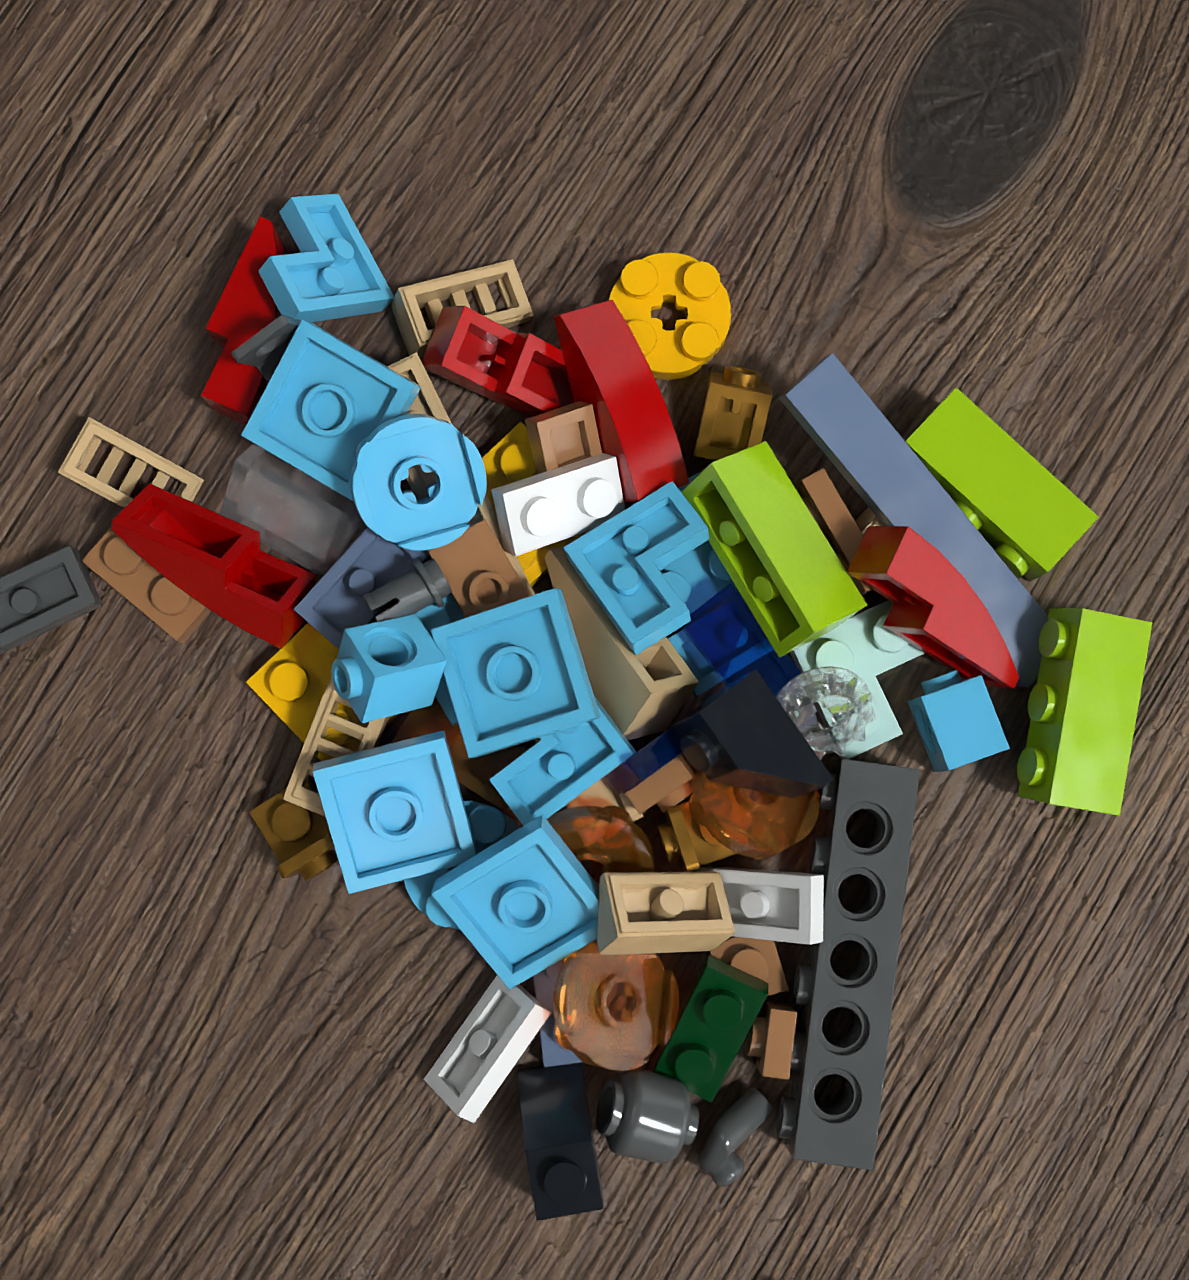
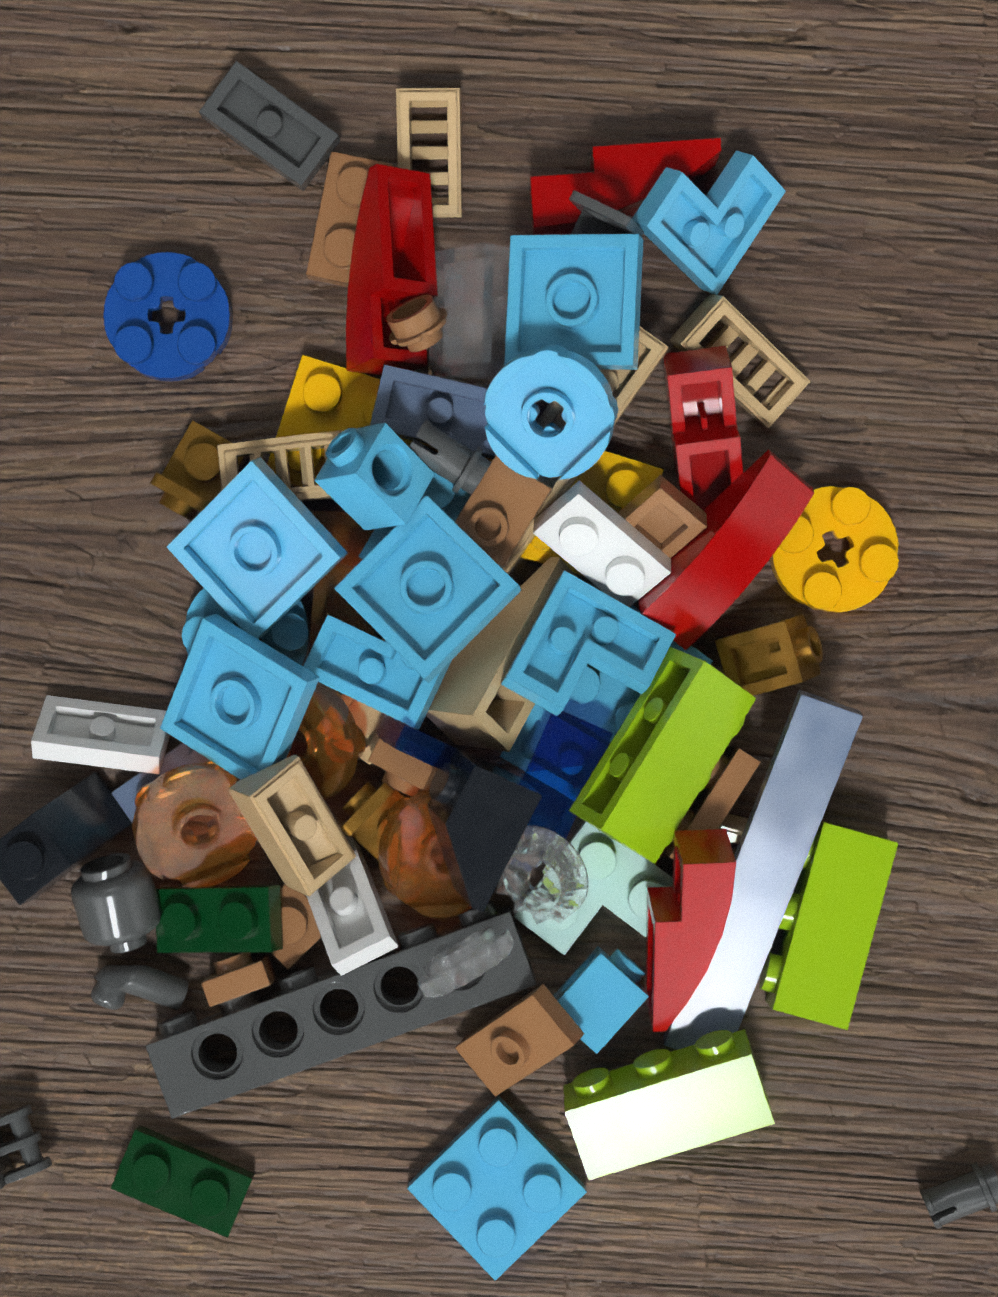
camera: 70 degrees right, 5 degrees up
(107, 790) = (141, 289): none -> blue plate
(273, 561) = (416, 323): none -> medium nougat plate
(870, 819) = (465, 961): none -> clear gear
(931, 1190) = (182, 1181): none -> dark green plate
(961, 811) = (519, 1040): none -> medium nougat plate
(1080, 905) = (497, 1188): none -> medium azure plate

